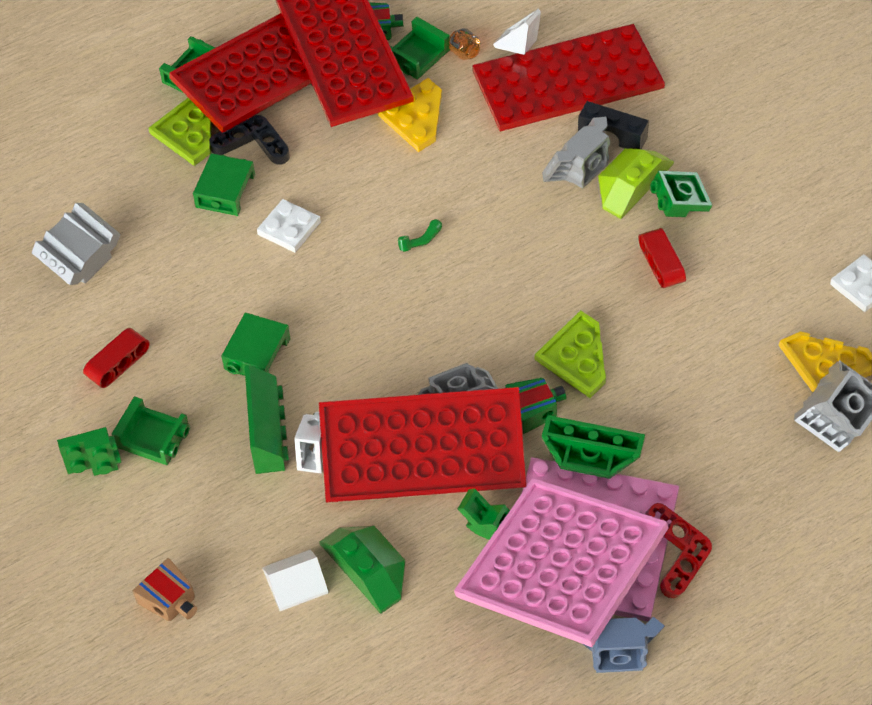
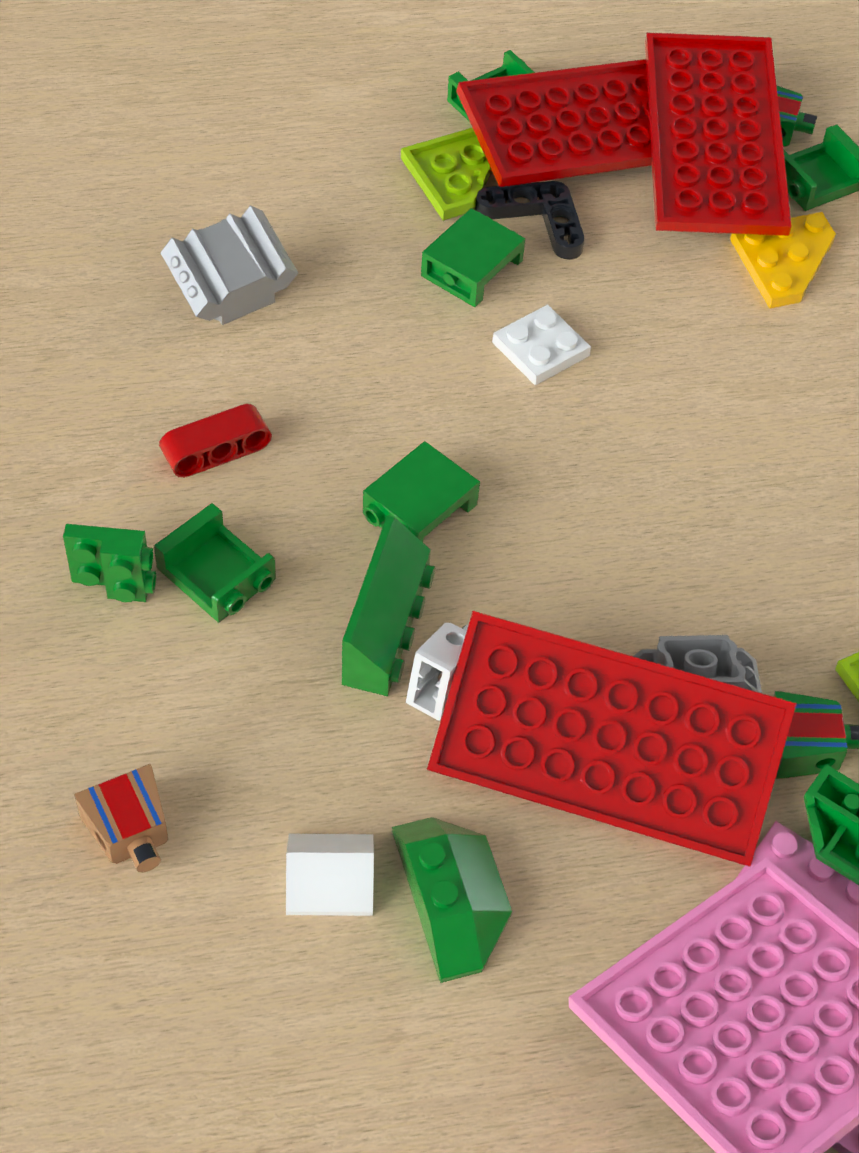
camera: 15 degrees right, 0 degrees up
(433, 229) = (701, 428): green piece -> none
(481, 516) = (660, 887): green brick -> none

